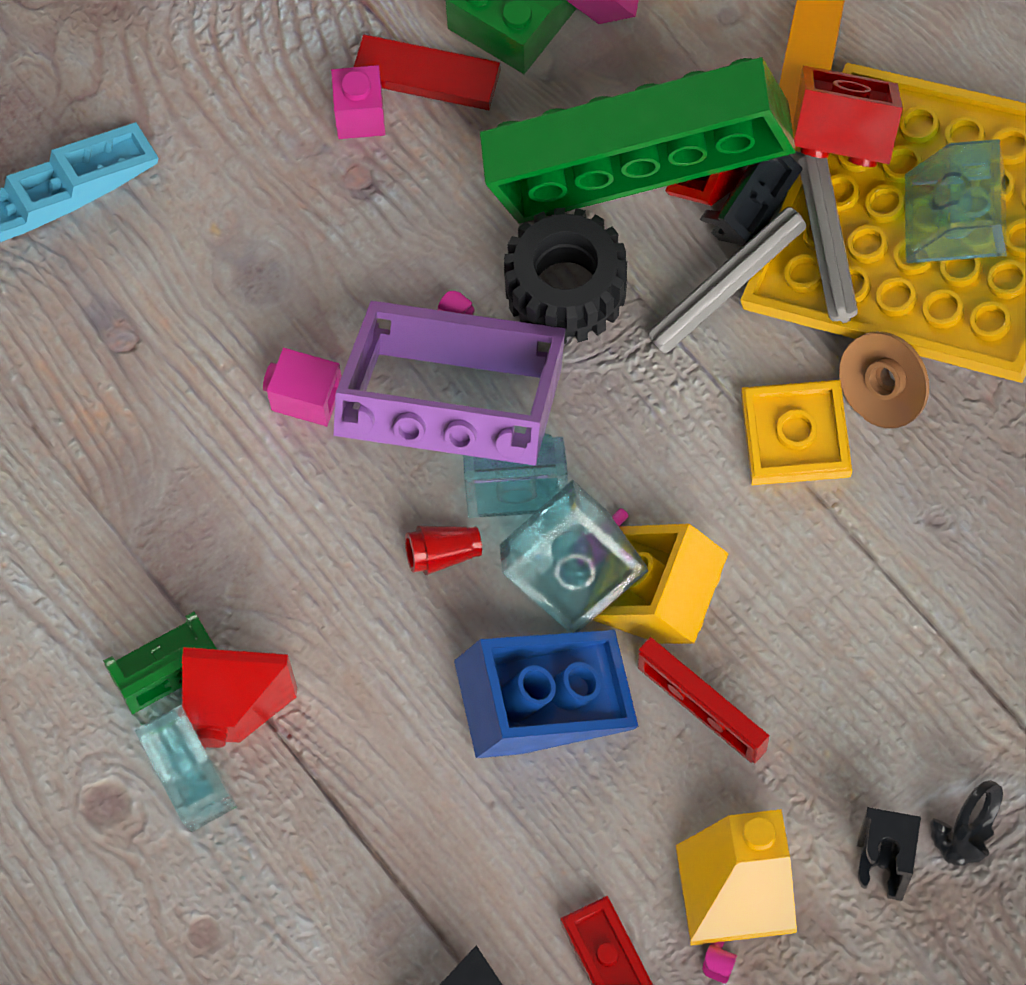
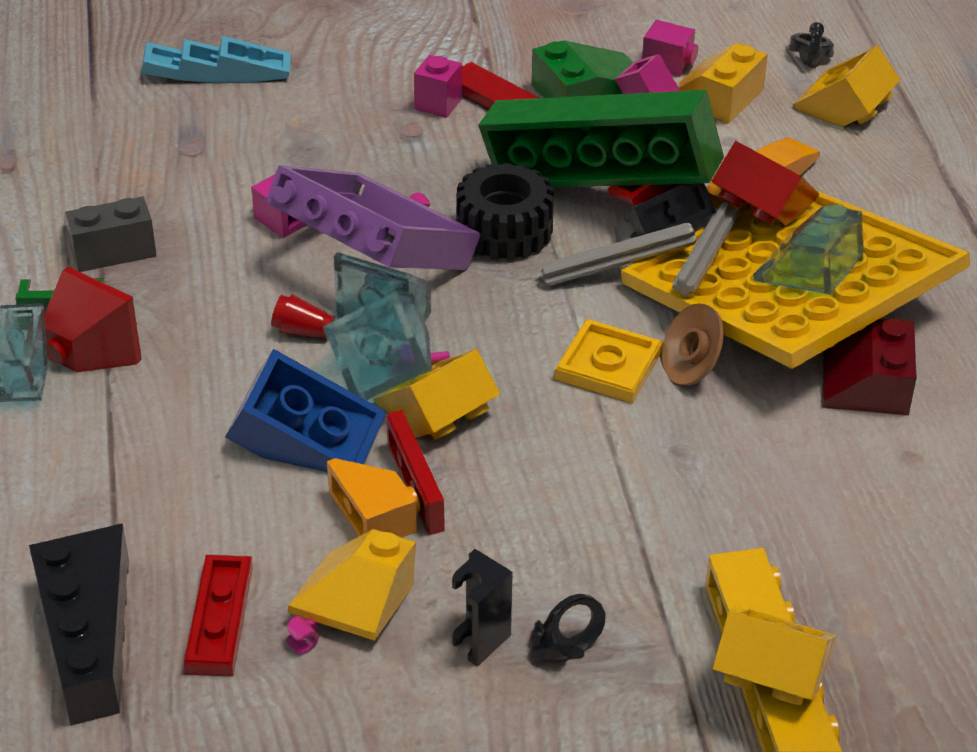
camera: 25 degrees right, 25 degrees down
(135, 527) = (110, 233): none -> dark grey slope
(685, 763) = (373, 498): none -> light orange slope

